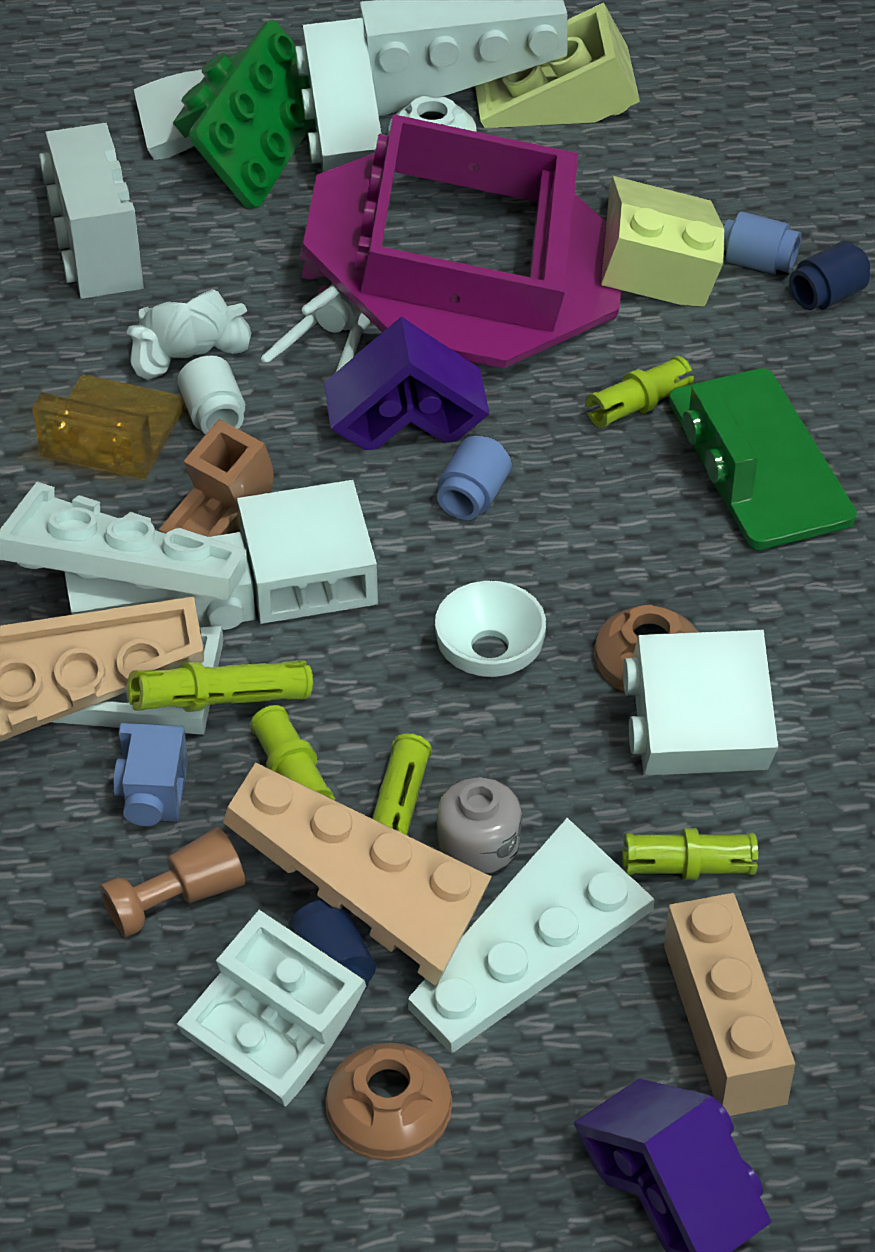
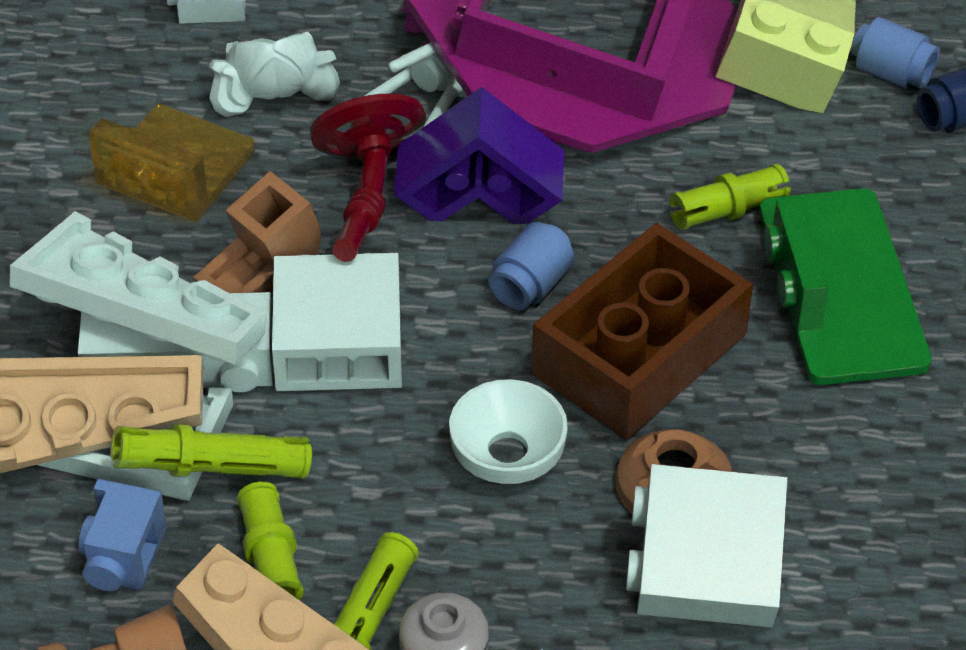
camera: 10 degrees right, 0 degrees up
(211, 393) = (283, 141): light aqua brick -> none
(300, 386) = (371, 144): none -> dark red dish
(591, 520) = (641, 329): none -> reddish brown brick

